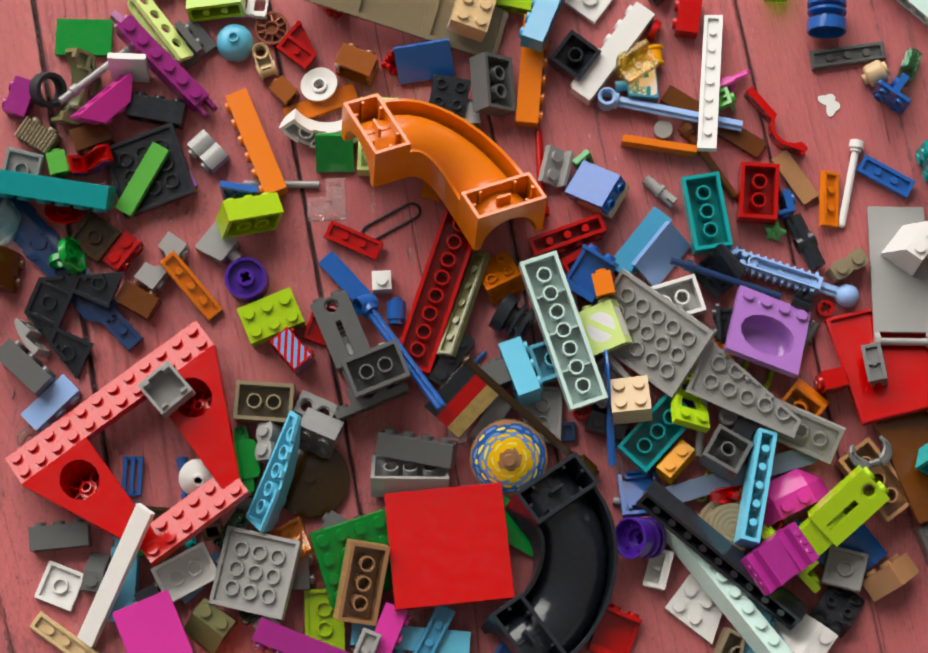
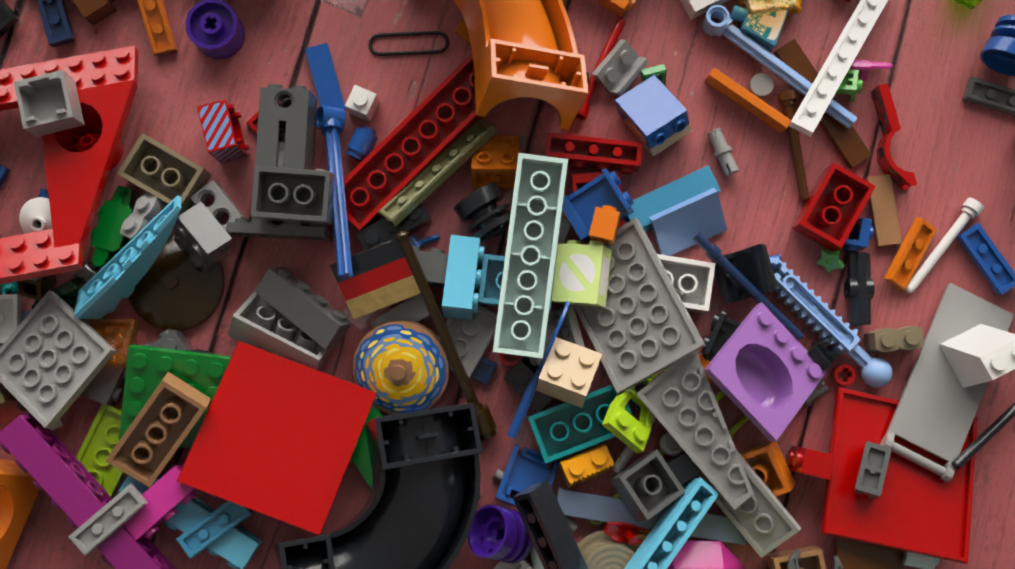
camera: 25 degrees right, 5 degrees up
(270, 315) = (221, 78): lime brick -> none
(353, 240) = (356, 42): red plate -> none
(705, 212) = (763, 200): teal brick -> none
(831, 104) = (965, 146): white sticker -> none

